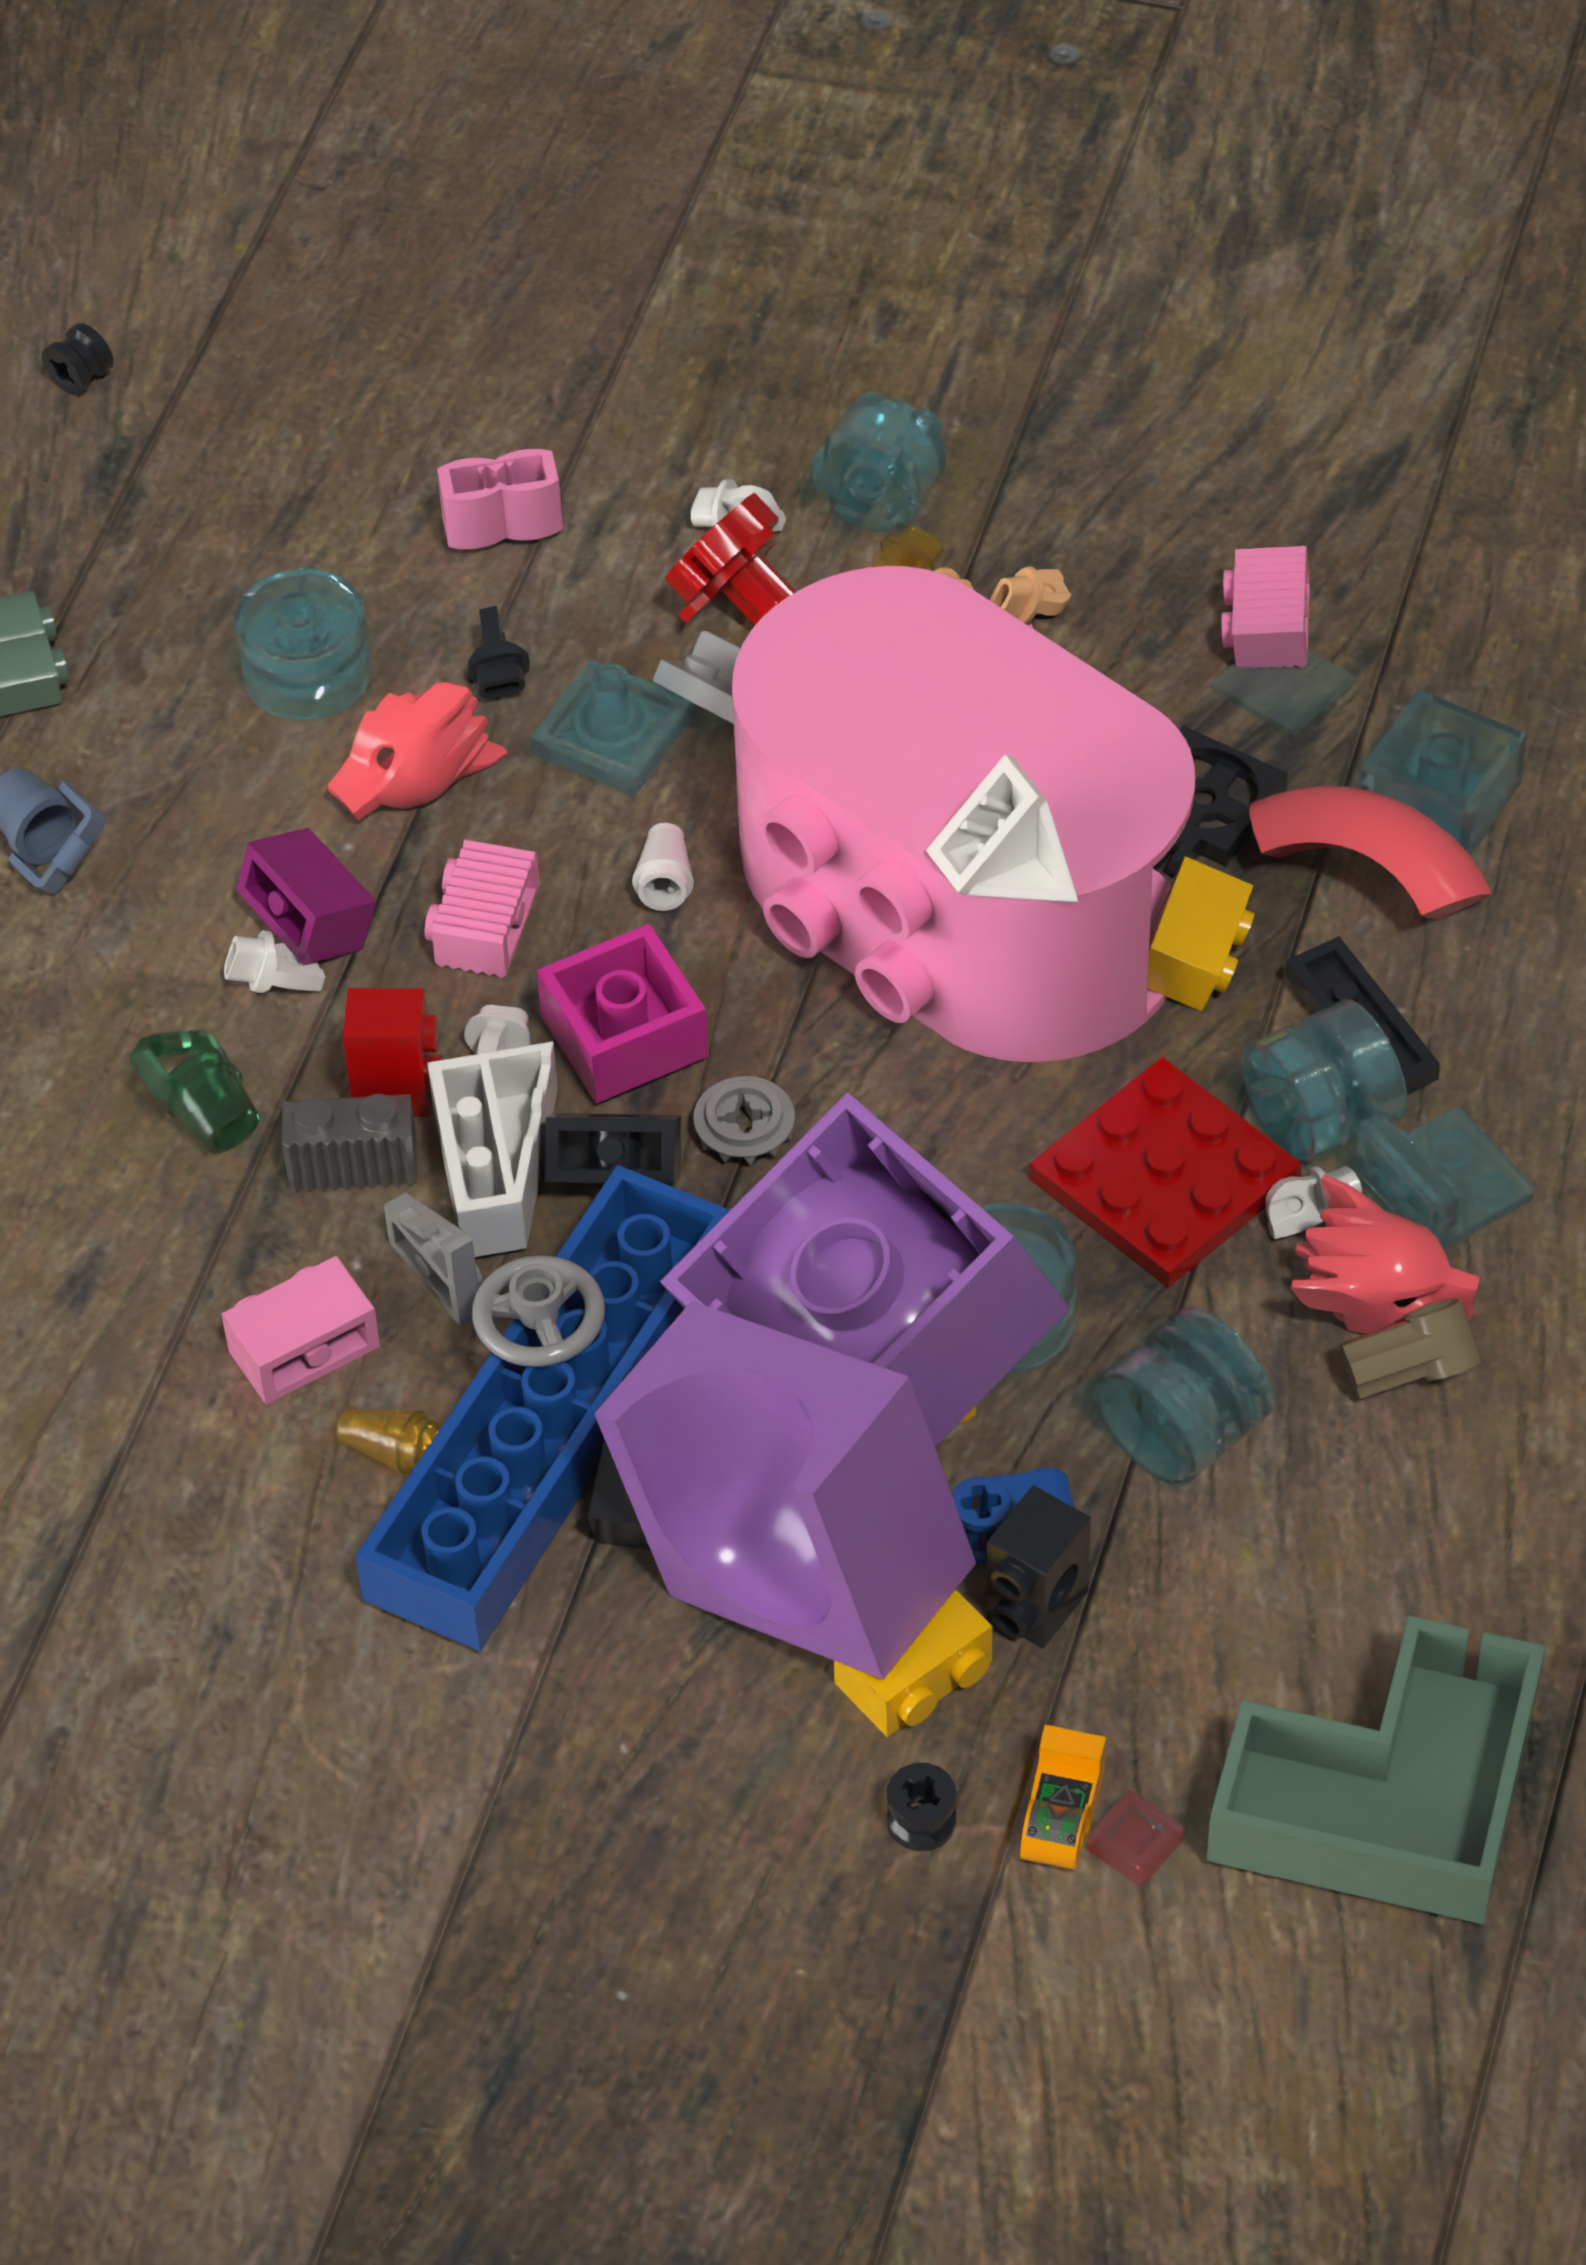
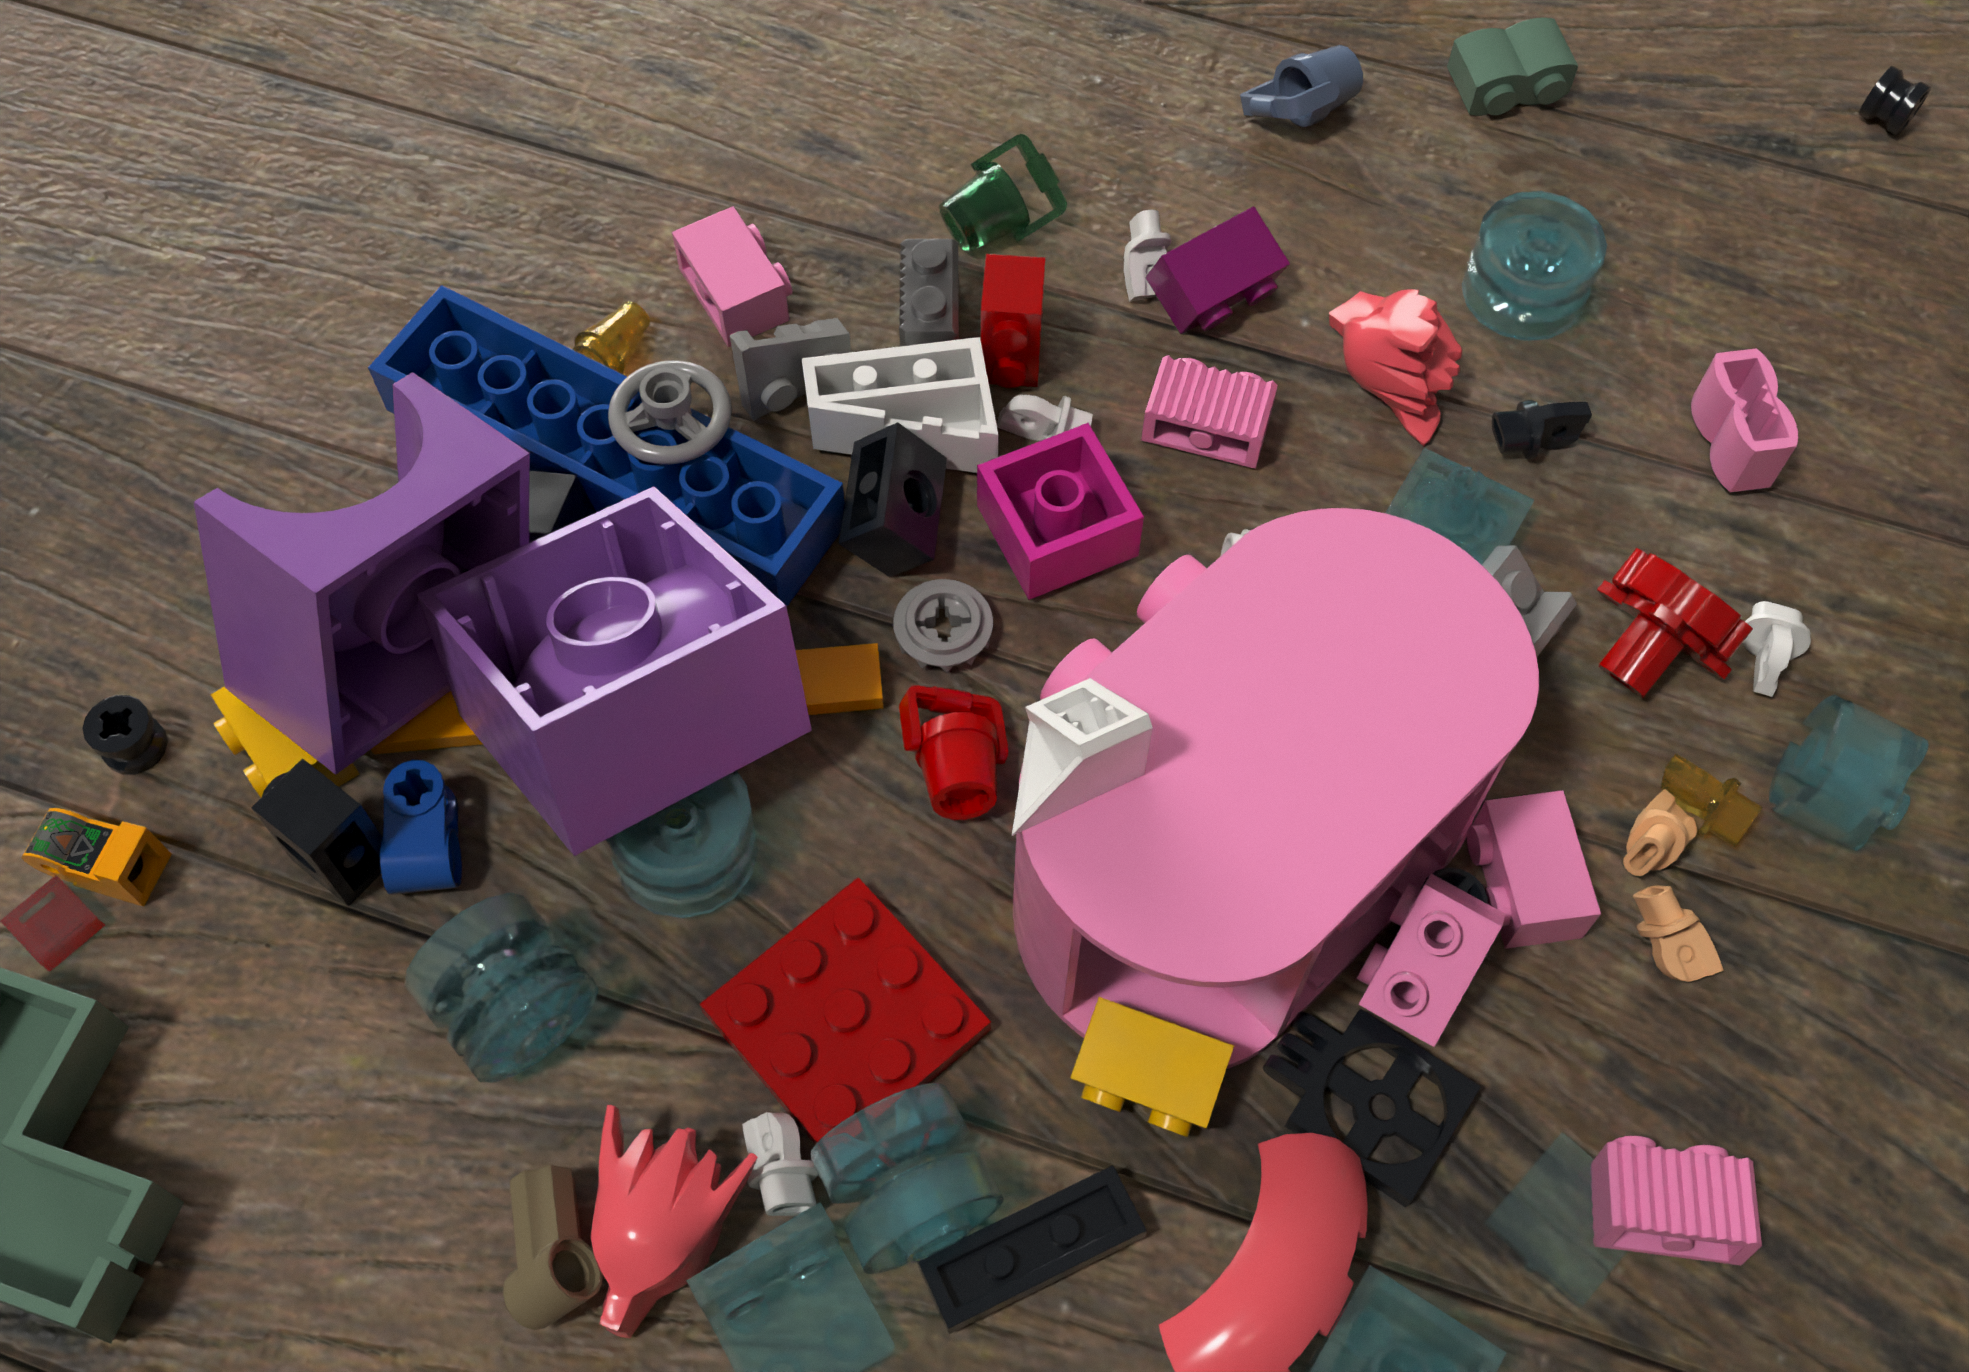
camera: 90 degrees right, 10 degrees up
(909, 1080) = (956, 748): none -> red piece

